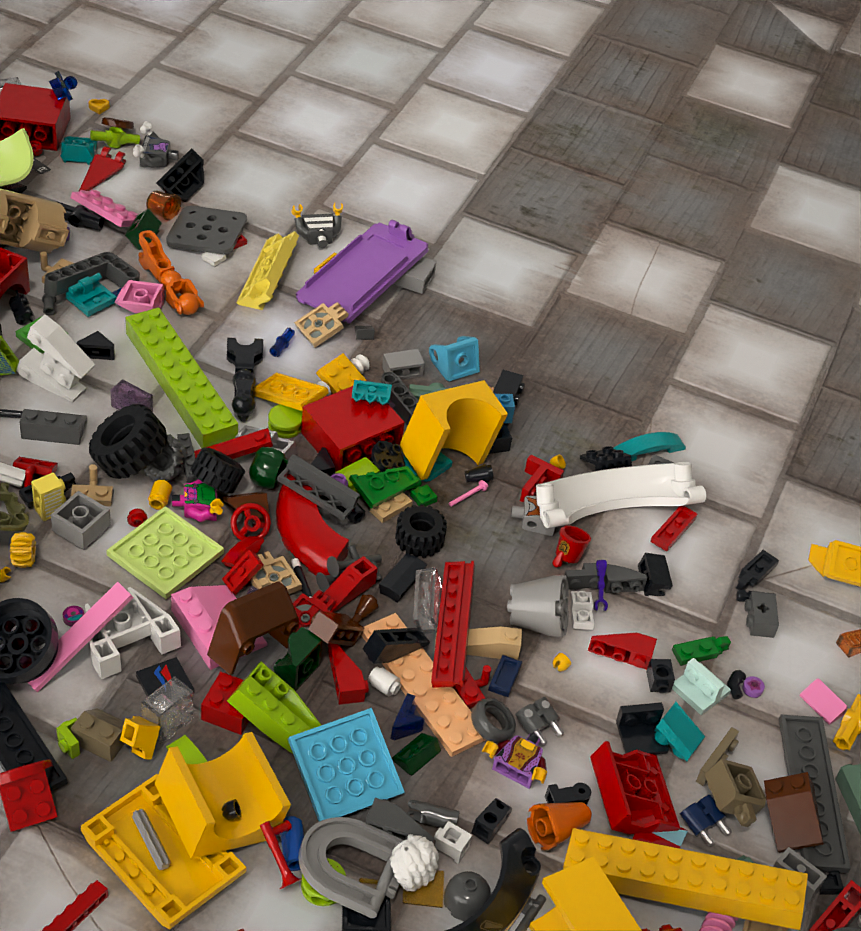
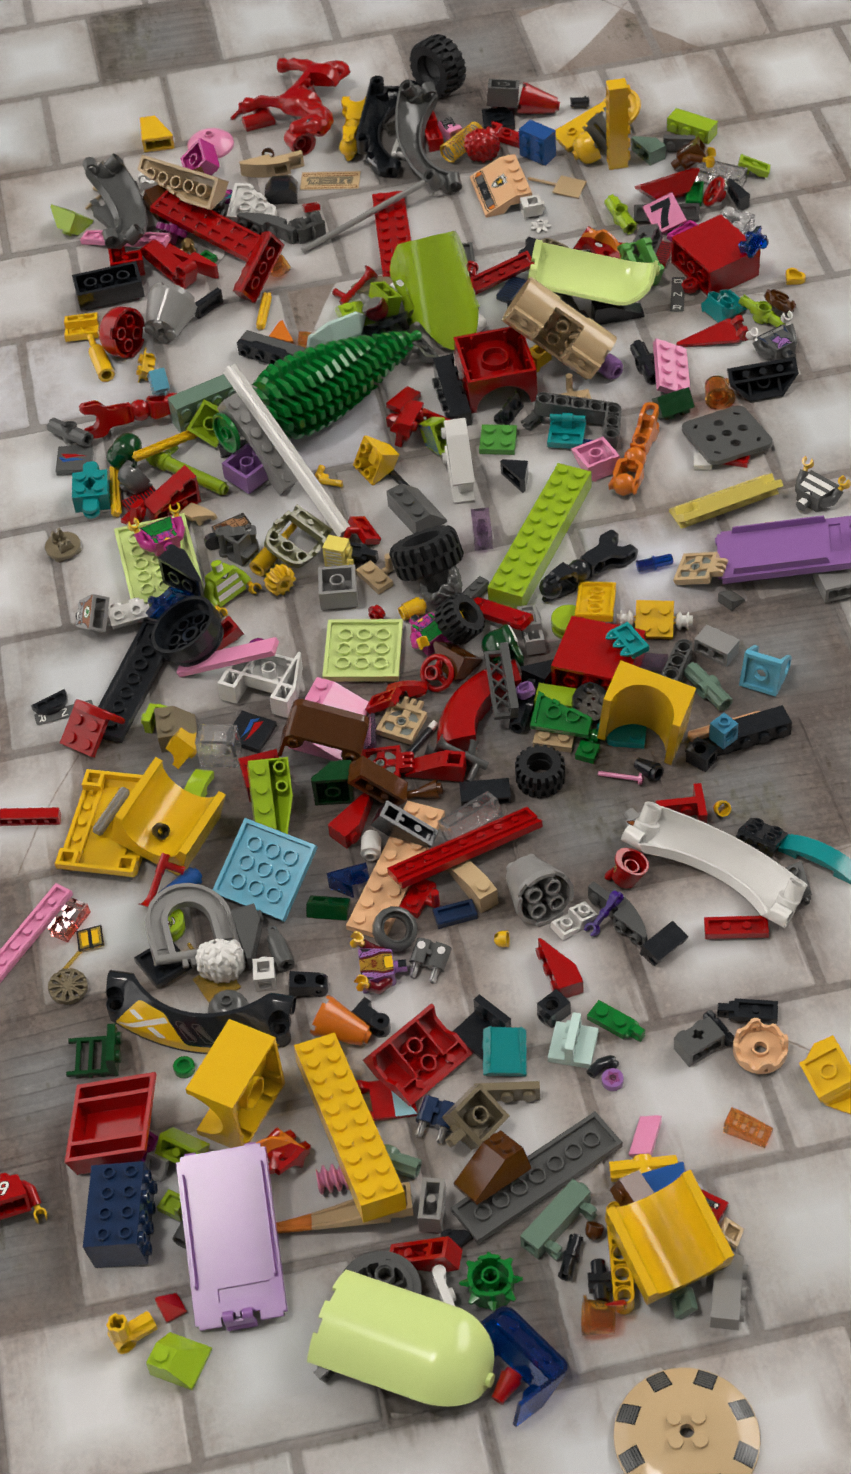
camera: 65 degrees right, 5 degrees up
(799, 577) = (763, 1035): none -> light nougat plate

